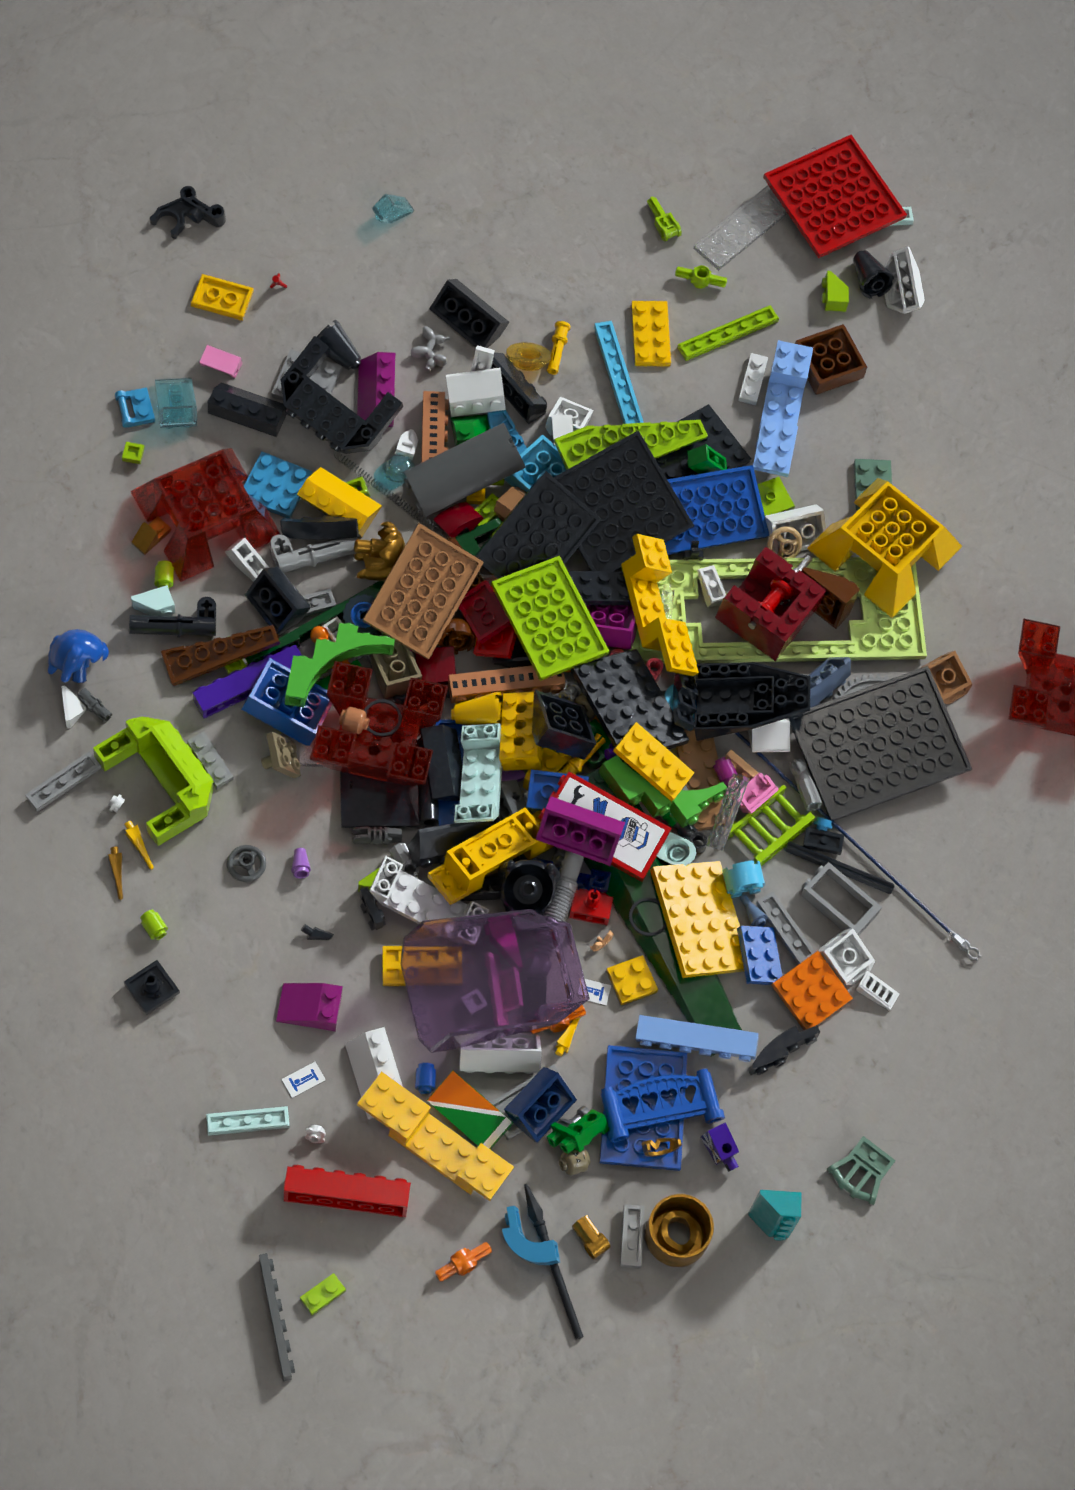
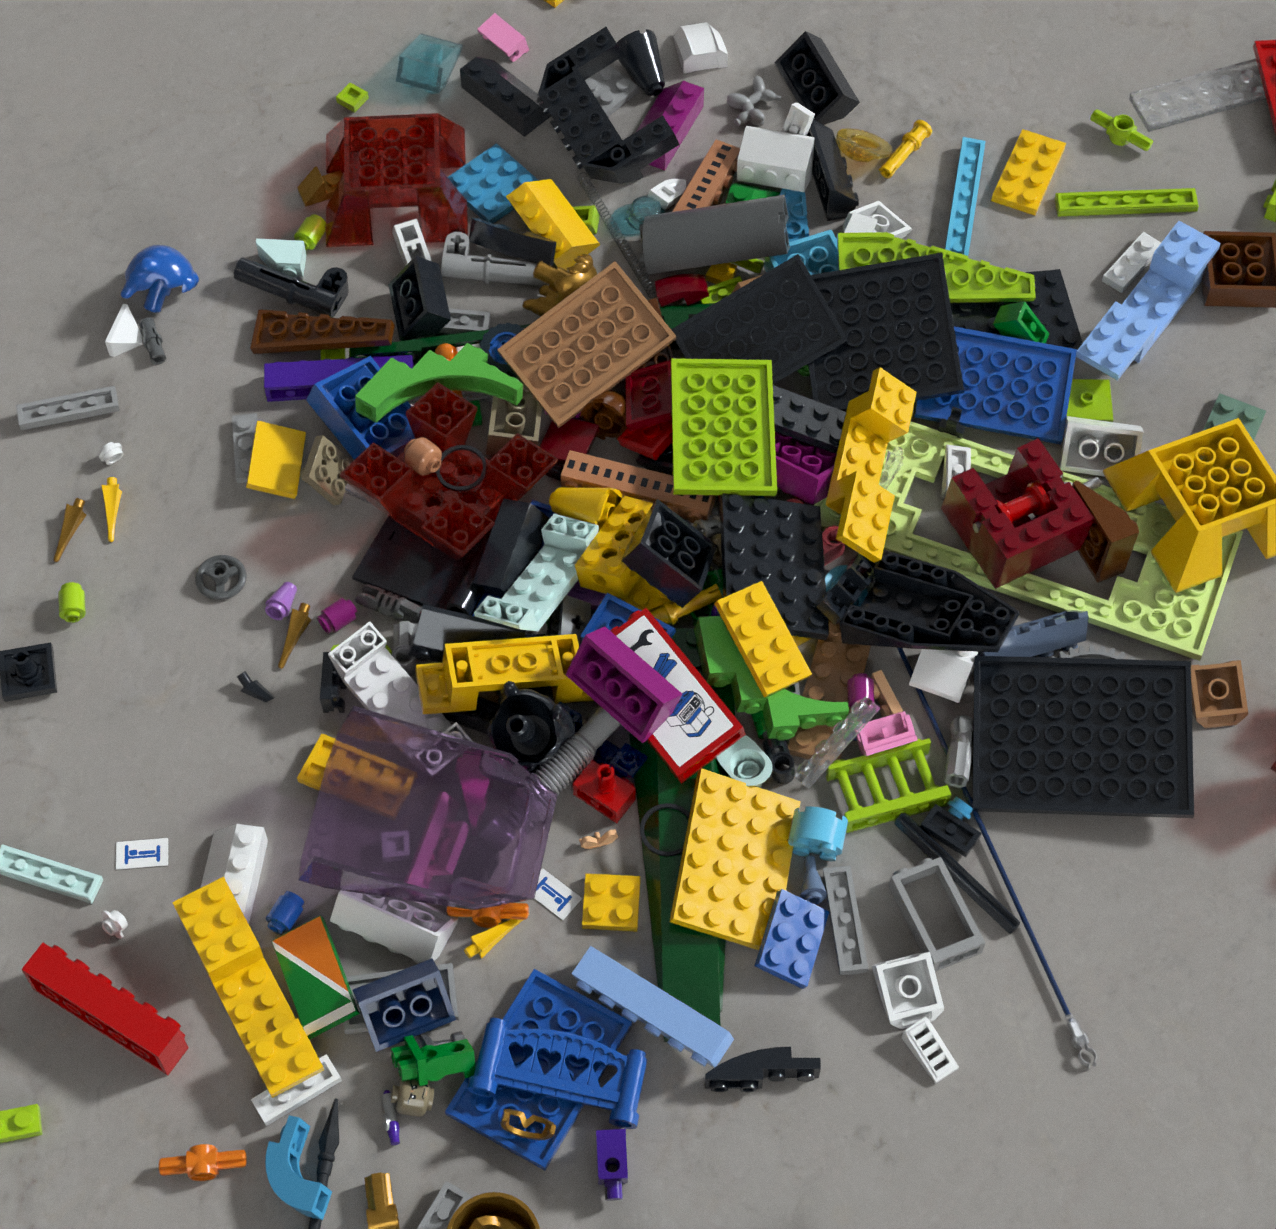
camera: 35 degrees right, 5 degrees down
(141, 406) = (388, 57): dark azure plate -> none
(171, 764) = (198, 429): lime wedge -> none
(238, 761) = (276, 459): none -> yellow tile
(310, 1005) = (200, 769): magenta slope -> none
(320, 875) = (298, 623): none -> pearl gold piece
(346, 858) = (337, 615): none -> magenta brick
(369, 316) = (700, 48): none -> white slope
(488, 1208) = (274, 1108): none -> white plate
(565, 1181) = (389, 1119): none -> piece
(665, 223) = (1106, 60): lime connector -> none
(790, 550) = (1069, 440): tan piece -> none
(812, 991) = (839, 1012): orange plate -> none

